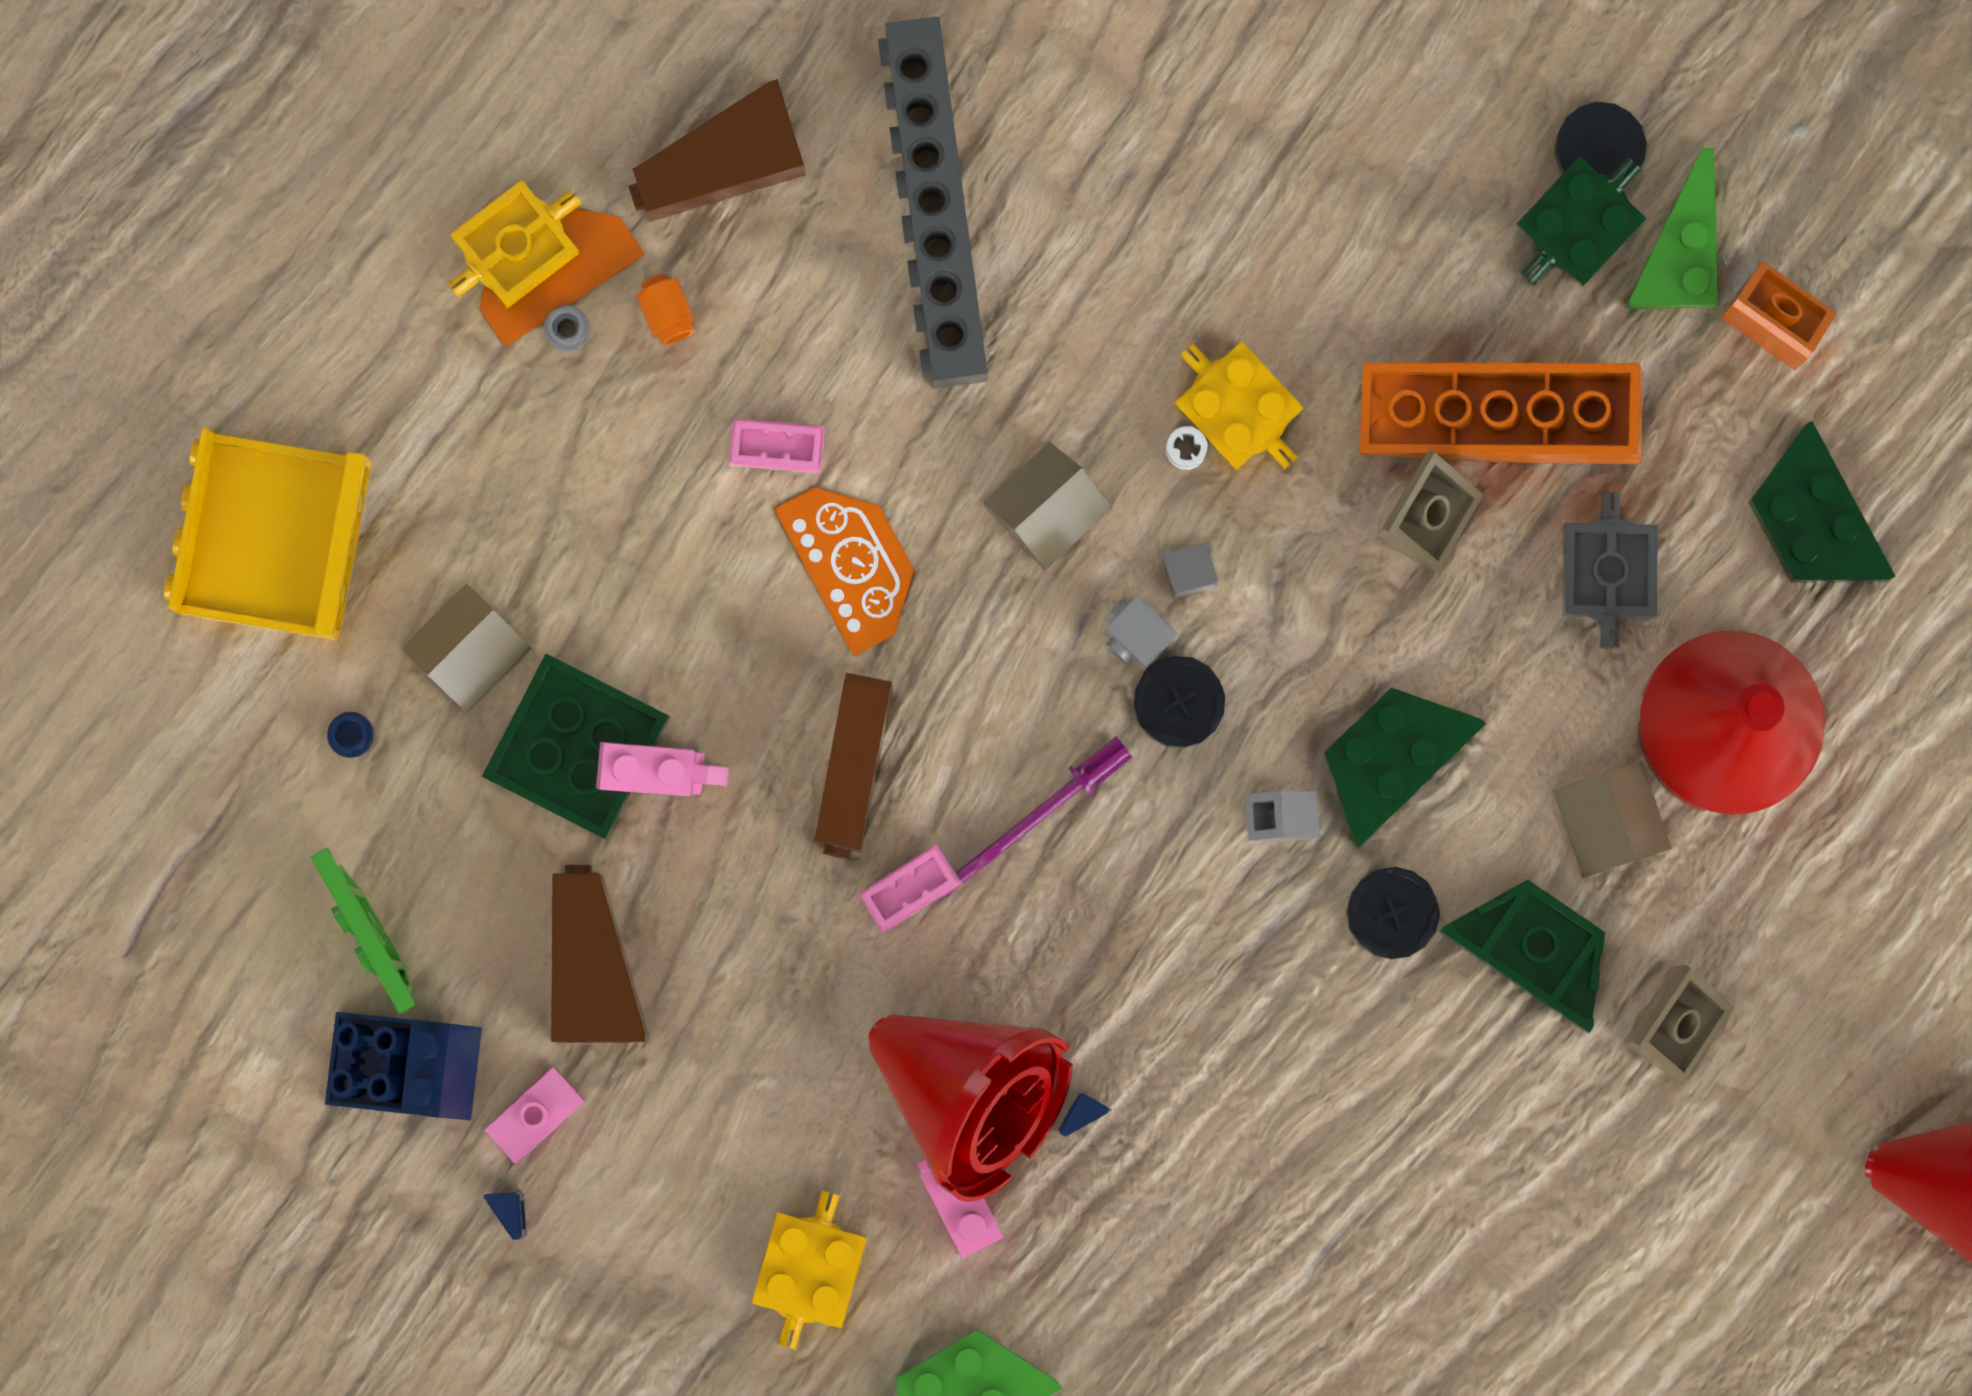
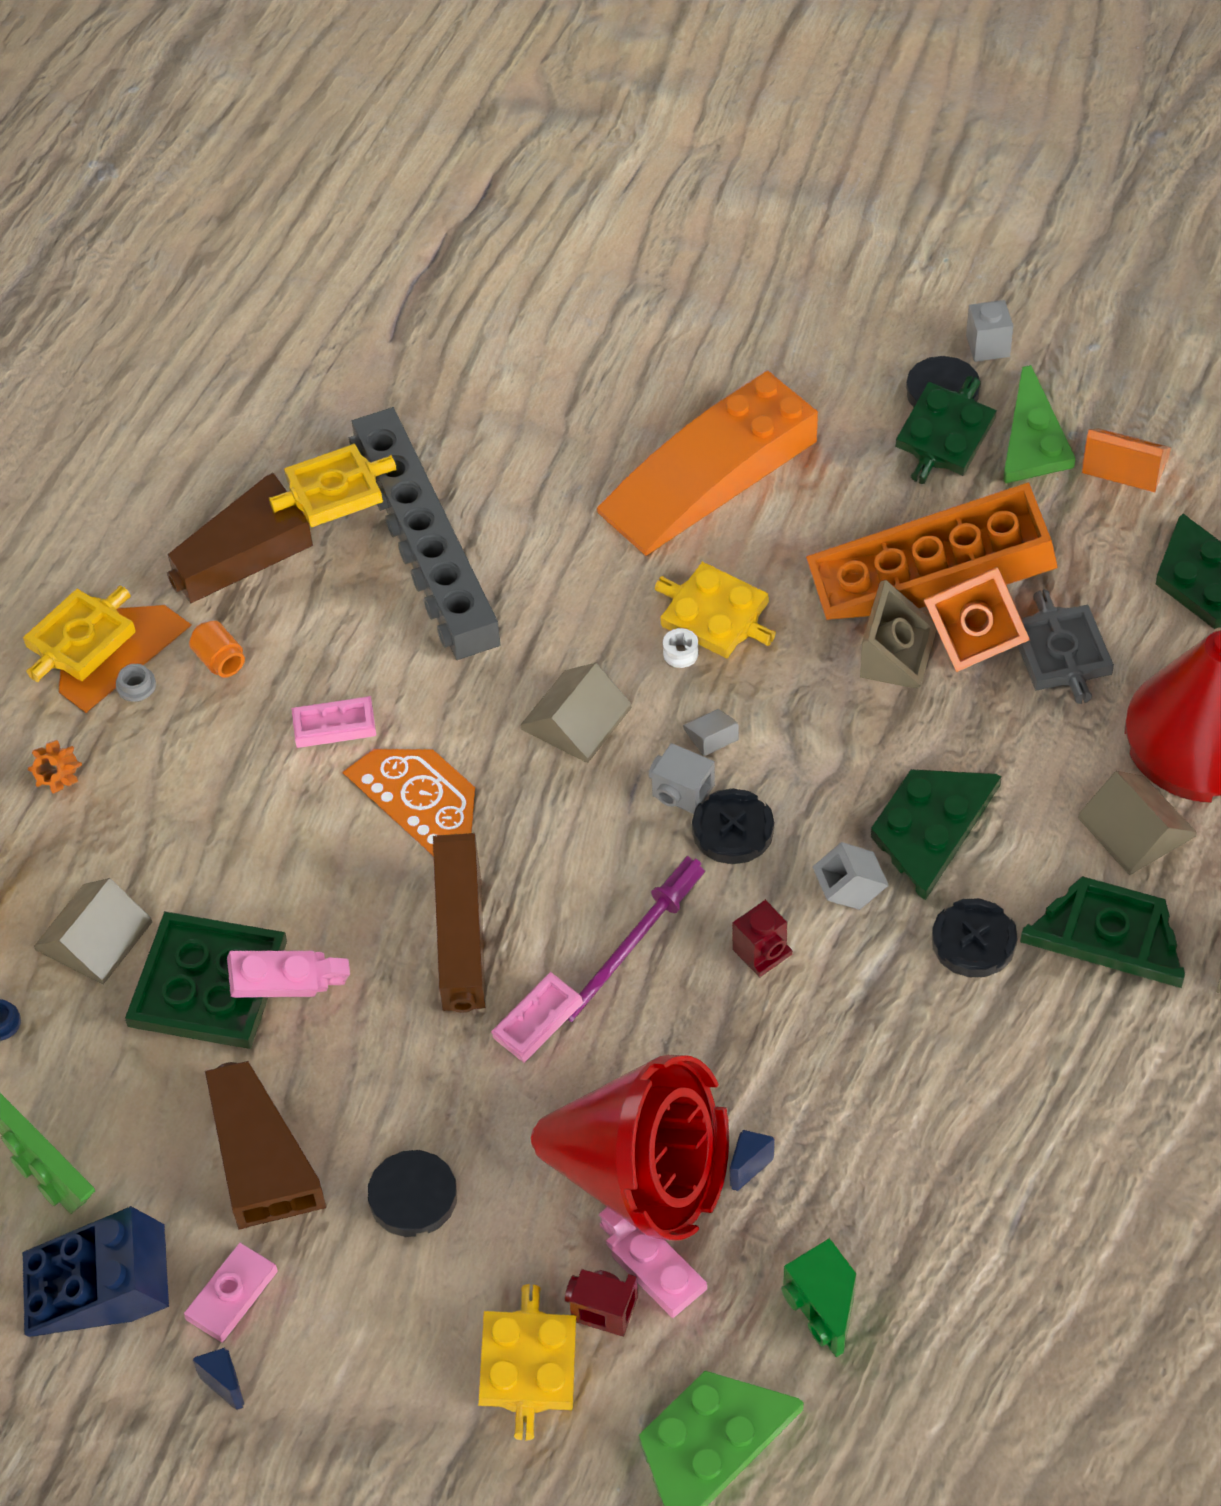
camera: 10 degrees left, 30 degrees down
(458, 427) = (57, 776): none -> orange gear
(737, 1054) = (412, 1193): none -> black tile
(842, 123) = (333, 485): none -> yellow plate
(895, 1229) = (602, 1300): none -> dark red brick
(1117, 1282) = (824, 1290): none -> green slope
(1168, 862) = (761, 938): none -> dark red brick
(1290, 194) = (711, 462): none -> orange slope
(1525, 522) = (977, 619): none -> orange slope
(1680, 84) = (989, 330): none -> light grey brick

